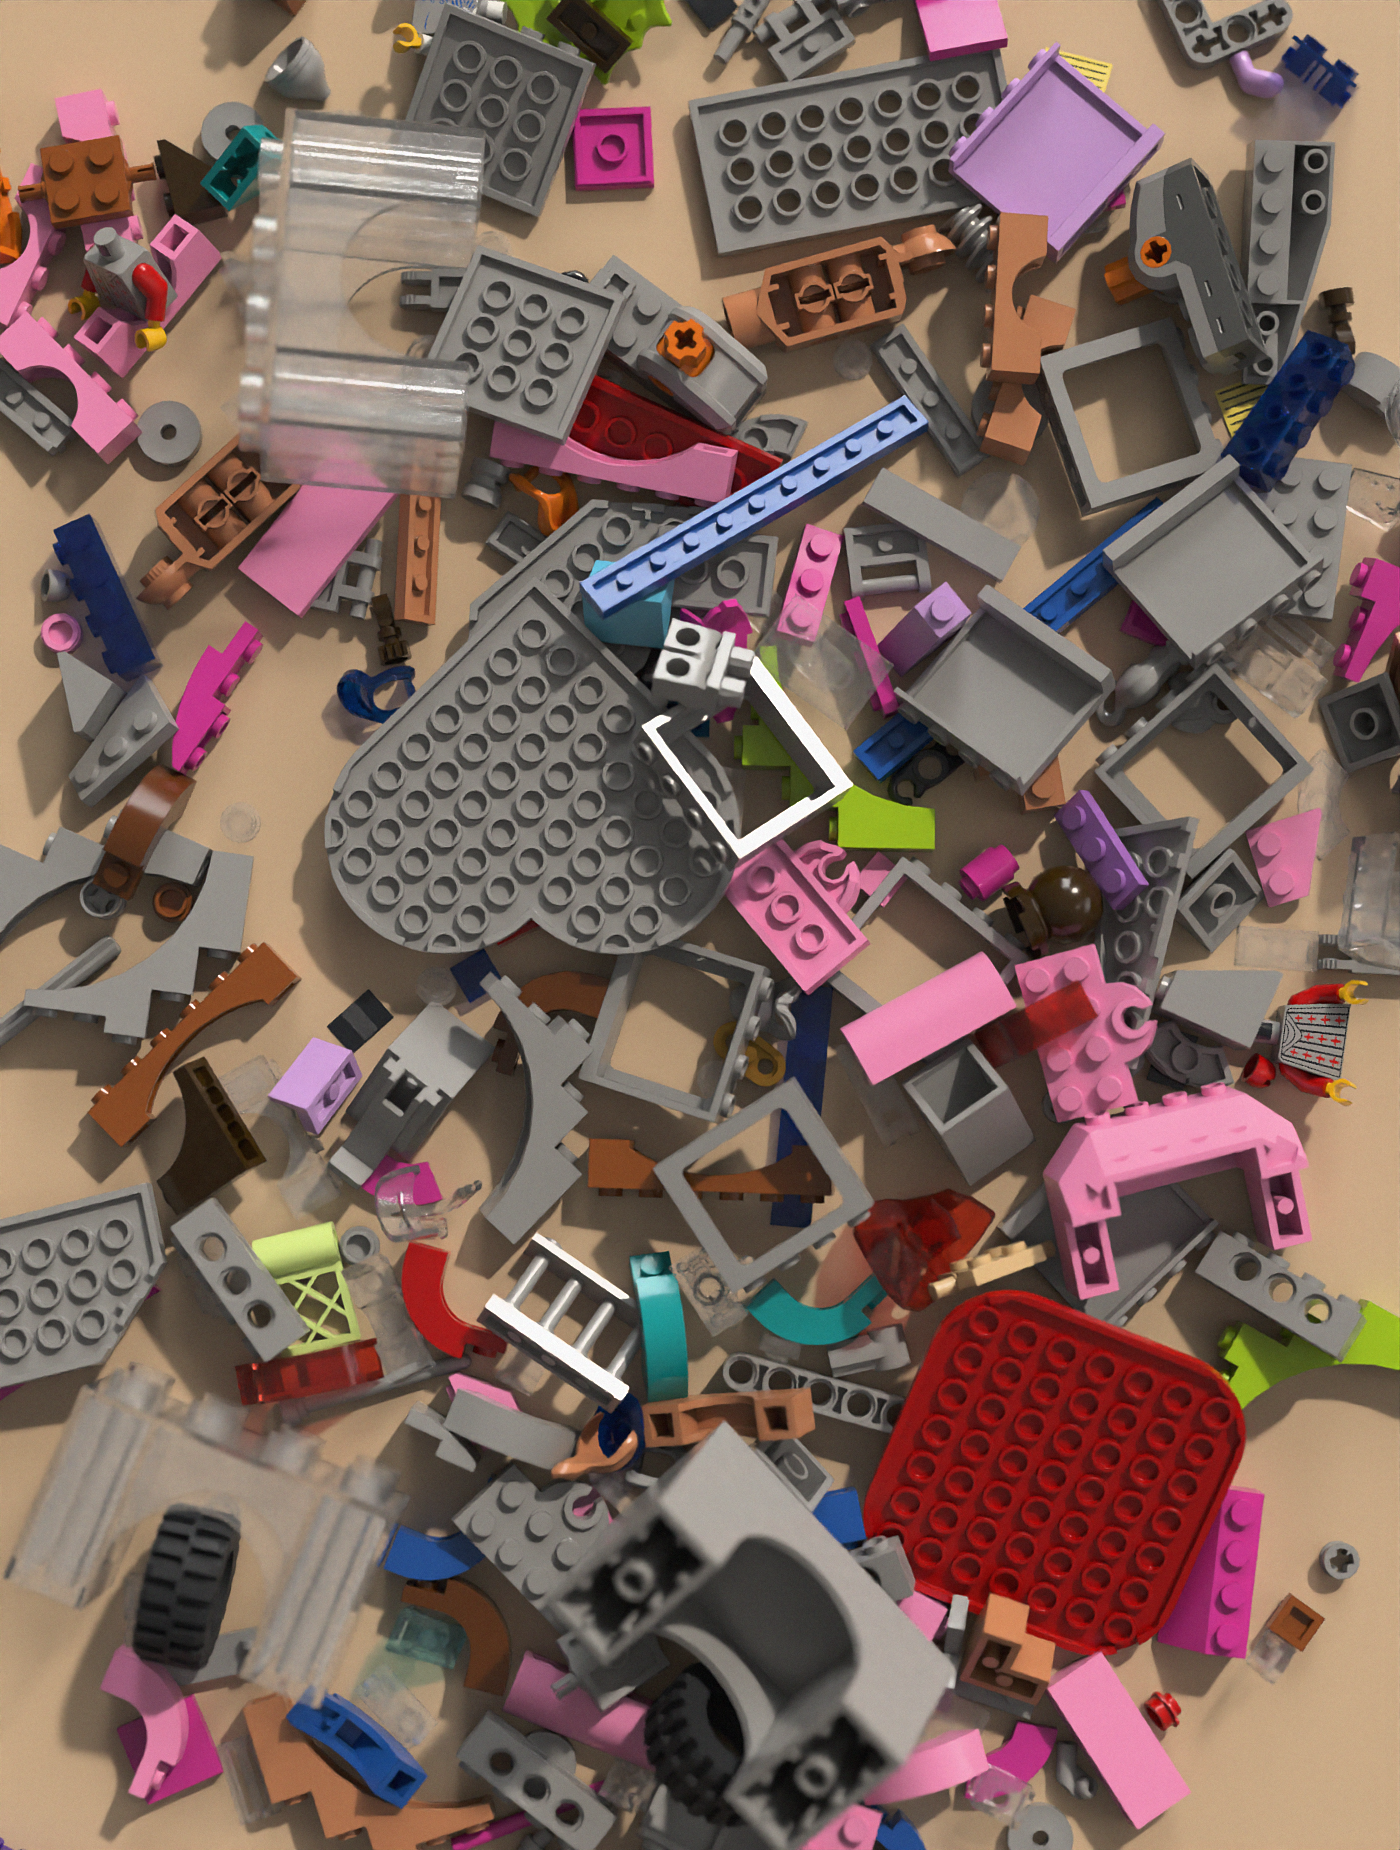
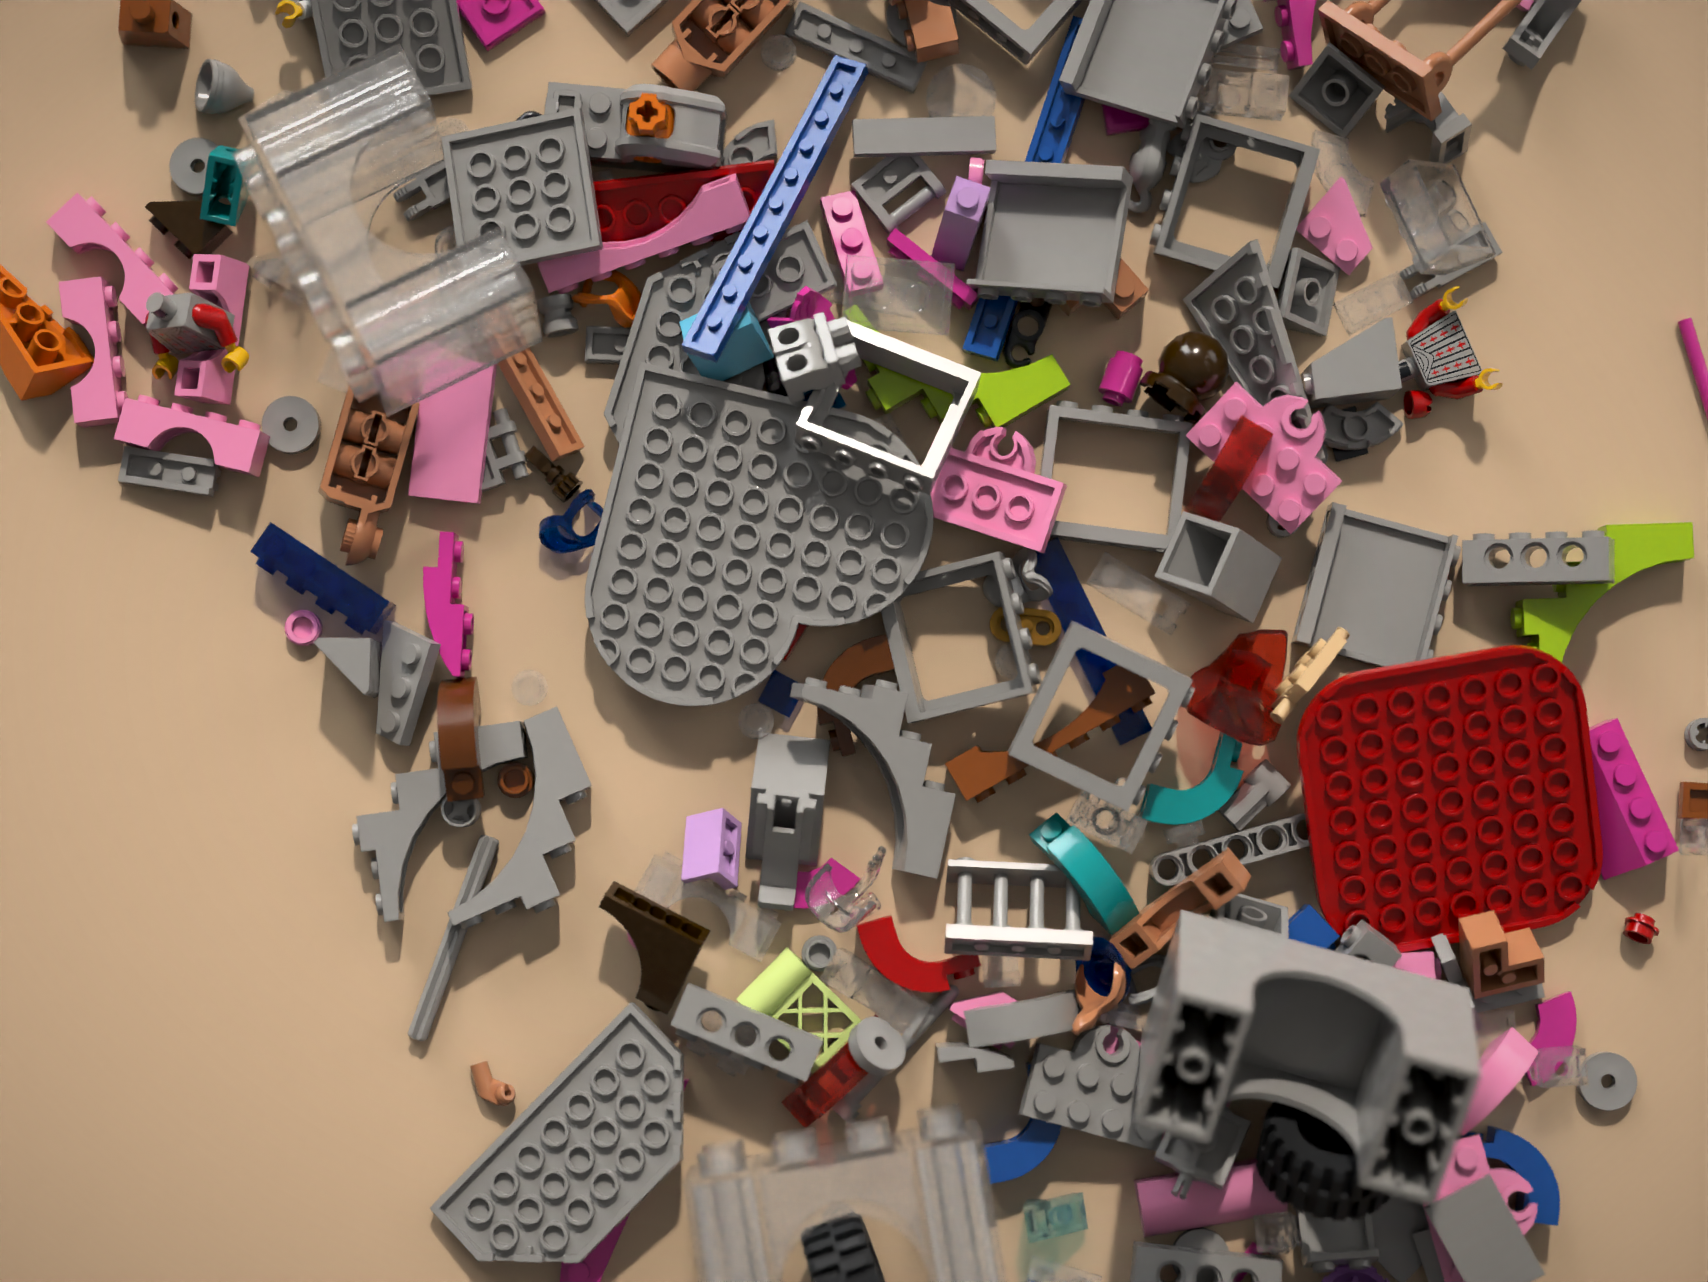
camera: 25 degrees left, 0 degrees up
(55, 586) = (275, 594): light grey hinge -> none
(86, 182) = (111, 270): dark orange plate -> none
(128, 1106) = (577, 956): dark orange arch -> none
(341, 1374) = (876, 1046): none -> light grey piece
(360, 1021) = (714, 783): black piece -> none
(481, 1620) = (1085, 1176): reddish brown arch -> none
(875, 873) = (1035, 431): bright pink tile -> none
(927, 1018) = (1144, 514): bright pink brick -> none
(971, 588) = (975, 170): none -> bright pink tile
(1070, 1775) = (1602, 1020): light grey arm -> none
(1101, 850) = (1196, 308): medium lavender plate -> none
(1115, 1739) = (1618, 971): bright pink brick -> none
(1164, 1146) = (1380, 504): bright pink wedge -> none

